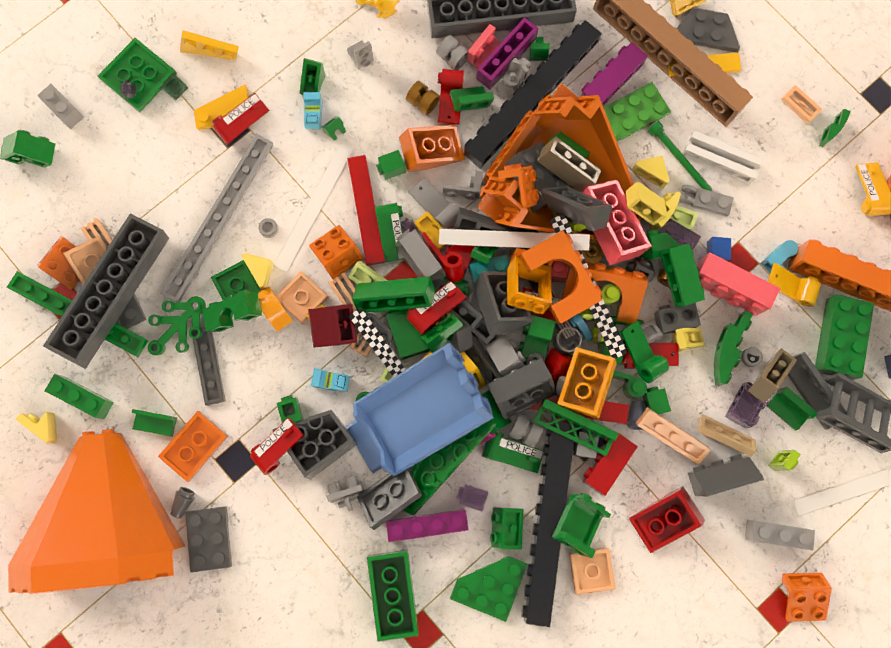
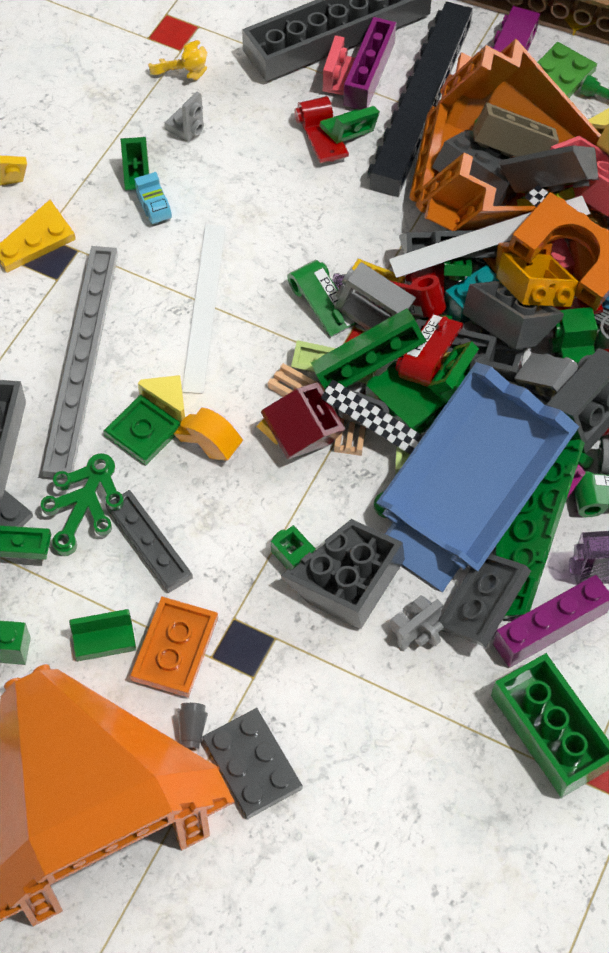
camera: 20 degrees left, 20 degrees down
(220, 314) = (139, 464): green arch -> none
(239, 118) = (60, 237): red door -> none
(268, 228) = (155, 349): light grey tile -> none
(275, 446) = (289, 608): red door -> none
(300, 296) = (242, 410): light nougat tile -> none
(330, 380) = (328, 495): medium azure leg -> none
(331, 126) = (187, 208): green tile -> none
(336, 251) = (264, 340): orange bracket -> none
(366, 210) = (276, 286): red tile -> none
(391, 165) = (285, 224): green brick -> none
(422, 97) = (288, 140): pearl gold wheel -> none
(431, 147) = (324, 190): orange slope -> none
(435, 203) = (354, 246): light grey door -> none
(452, 52) = (301, 83): light grey wheel -> none
(469, 193) = (399, 221): light grey bracket -> none
(516, 73) = (393, 78): light grey hips -> none
(526, 179) = (454, 148): orange bracket -> none
(539, 50) = (406, 50): green tile -> none

